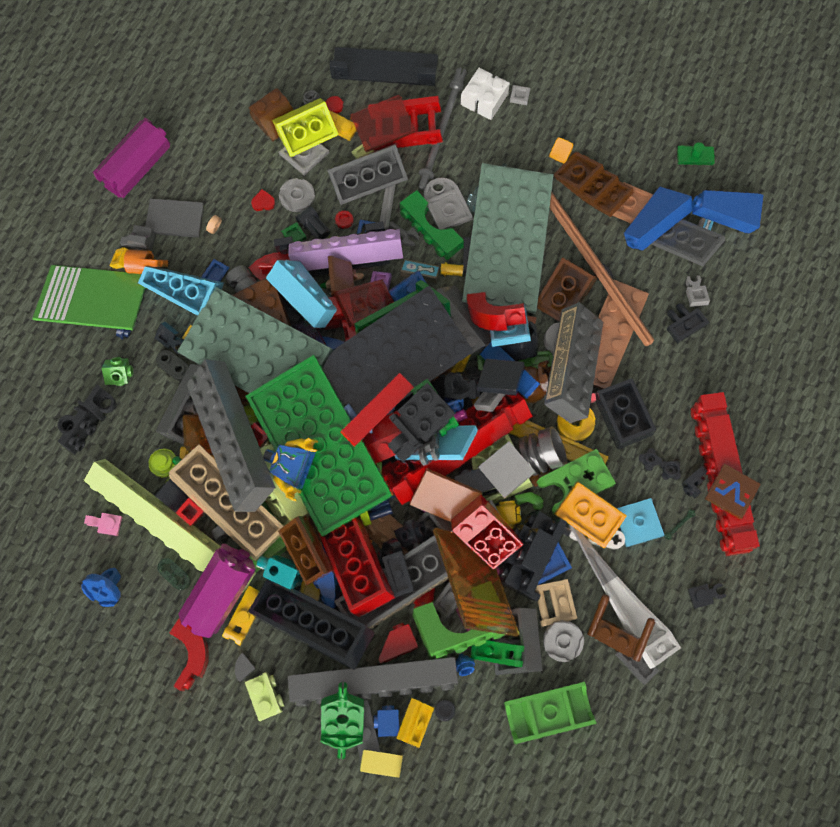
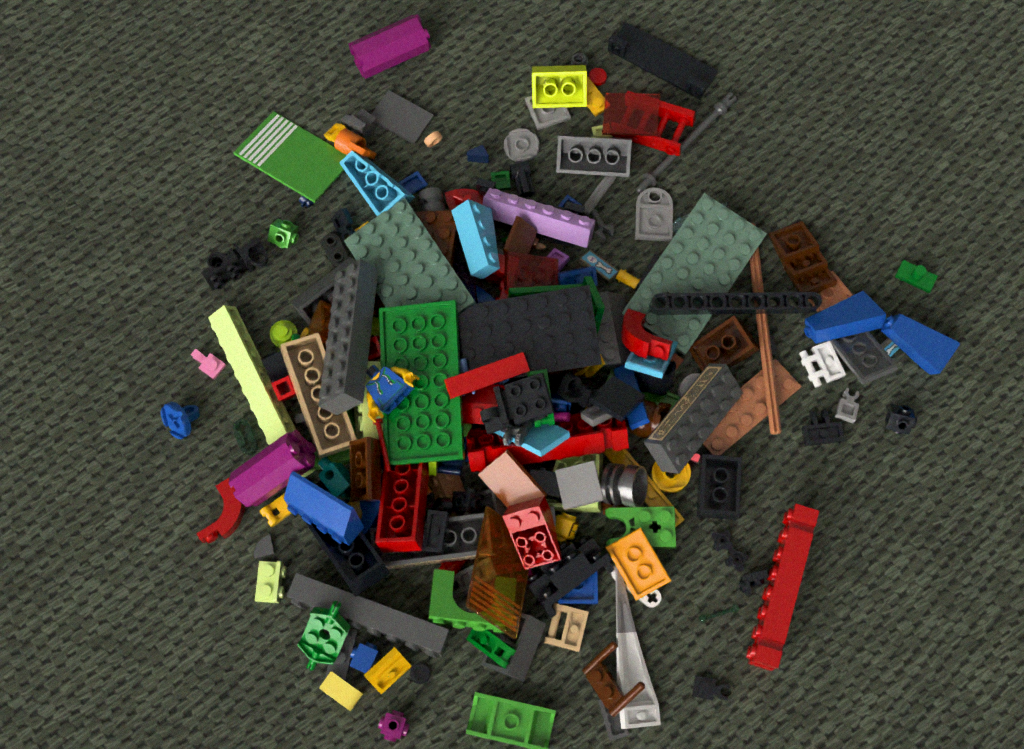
camera: 25 degrees right, 0 degrees up
(262, 220) = (477, 154): none -> dark blue slope
(263, 201) = (488, 137): red tile -> none
(269, 108) = (534, 54): reddish brown slope -> none
(284, 605) = (322, 509): none -> slope
(310, 517) = (382, 443): none -> red piece
(344, 219) = (553, 187): red tile -> none
(398, 643) = (408, 593): red slope -> none
(437, 770) = (401, 729): none -> magenta brick
(445, 241) = (635, 250): green arch -> none
(464, 665) = (457, 642): blue plate -> none
(486, 90) = (745, 128): white piece -> none
(520, 95) = (776, 143): light grey tile -> none
(531, 498) = (593, 522): bright green arm -> none
(551, 252) = (743, 299): none -> black beam
(561, 150) = (788, 214): light orange slope -> none
(563, 641) = (556, 665): light grey tile -> none
(641, 523) = (682, 593): medium azure plate -> none
(660, 262) = (828, 363): none -> white plate
(732, 491) = (778, 605): reddish brown tile -> none
(746, 282) = (900, 419): none -> black brick

